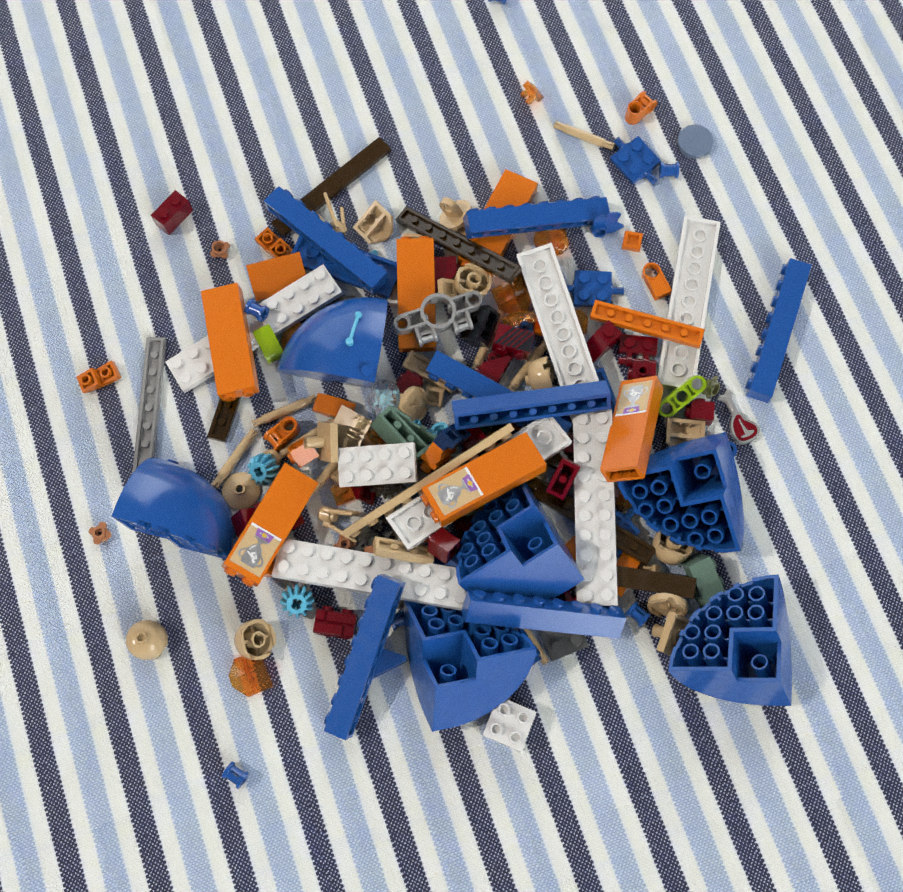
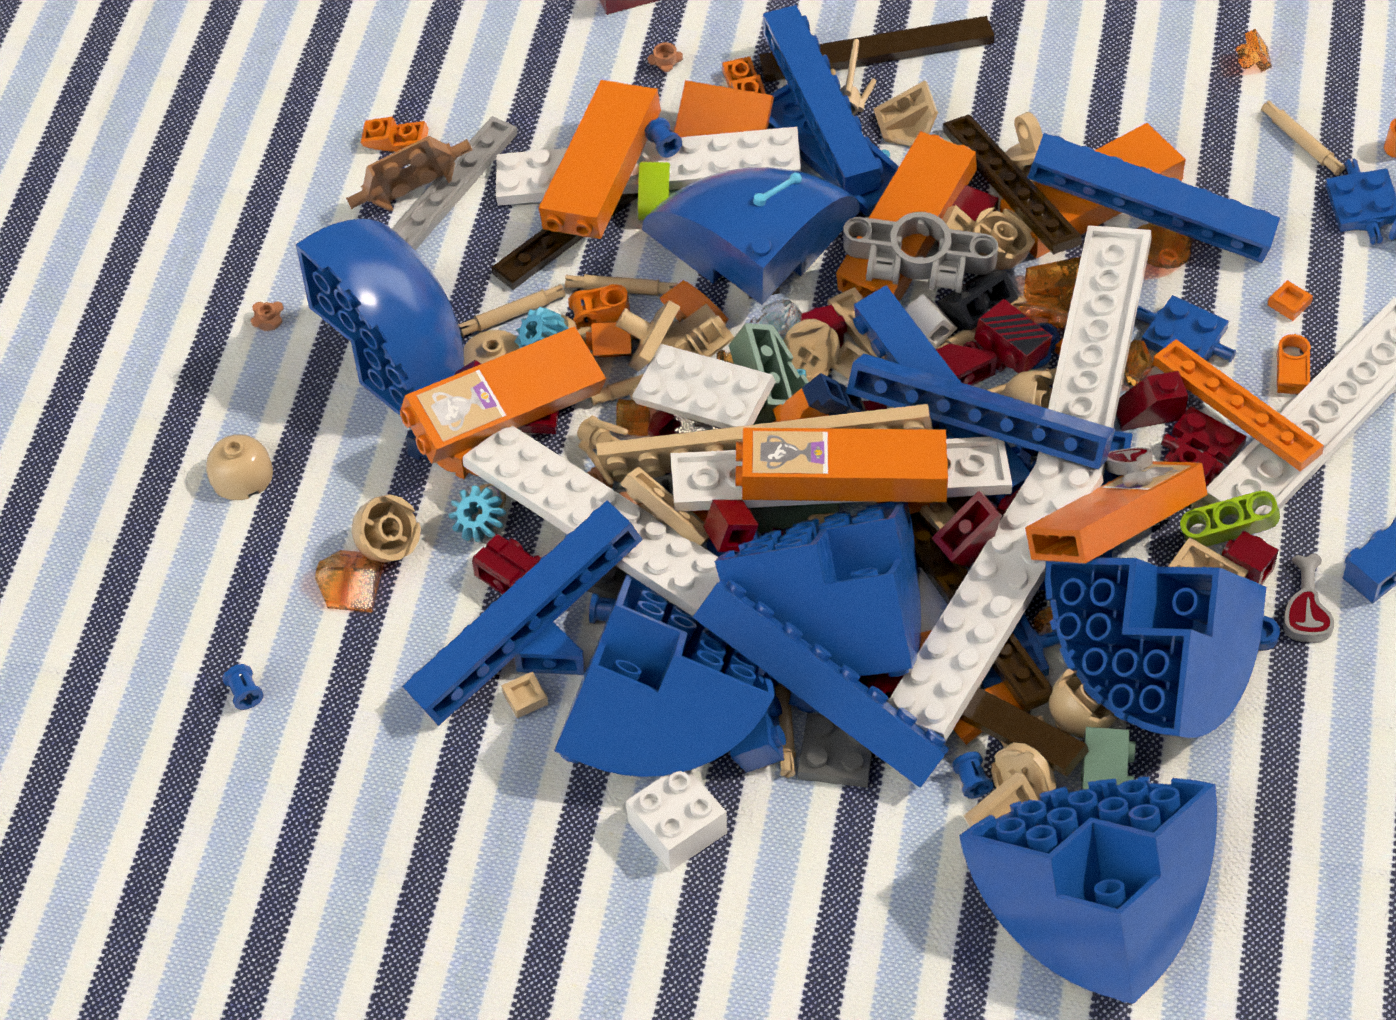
camera: 30 degrees right, 20 degrees down
(124, 402) = (427, 160): none -> medium nougat plate
(387, 694) = (524, 694): none -> tan plate
(462, 351) = (931, 320): none -> white brick
(606, 224) = (1259, 255): blue plate -> none
(617, 387) = (1130, 464): none -> light grey piece
(712, 387) = (1296, 538): olive plate -> none

